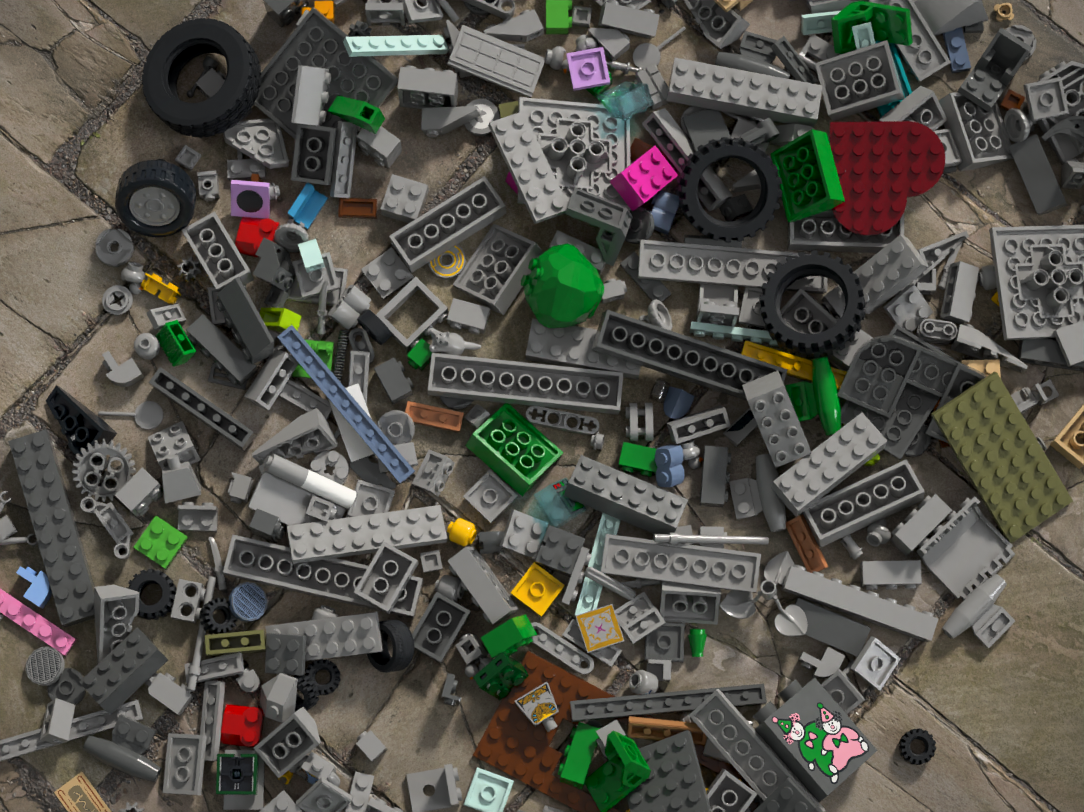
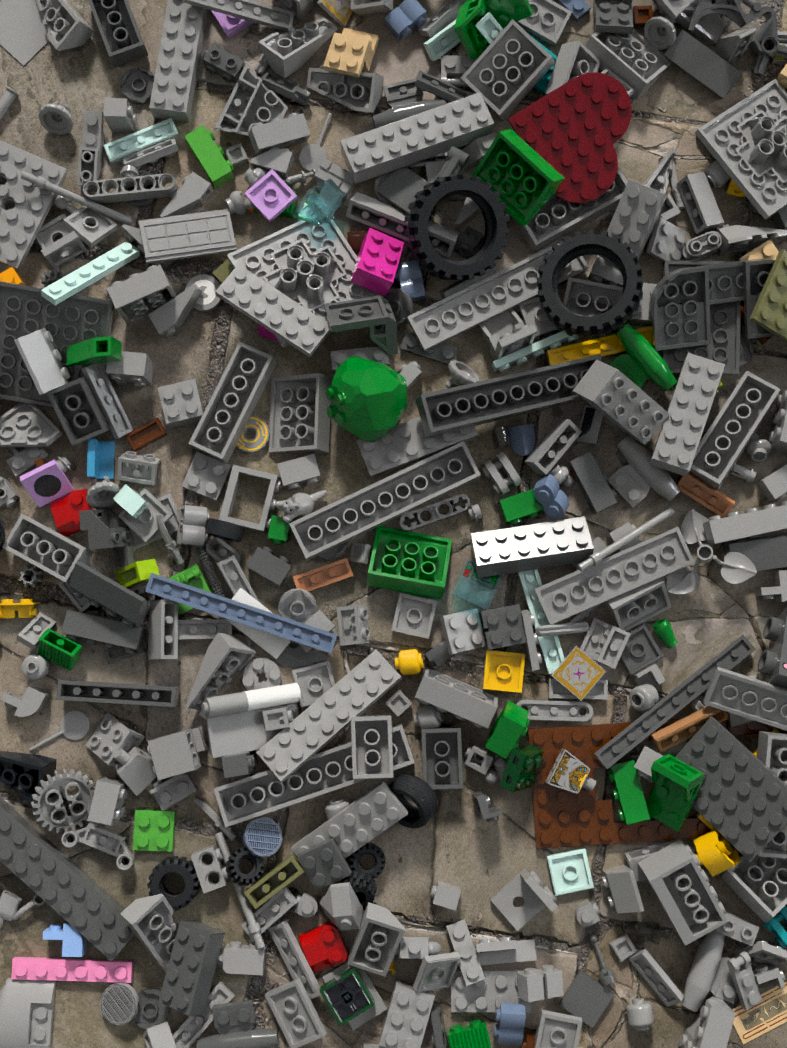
camera: 30 degrees left, 5 degrees up
(218, 485) = (174, 754): none -> light grey brick
(333, 232) = (138, 468): none -> light grey bracket

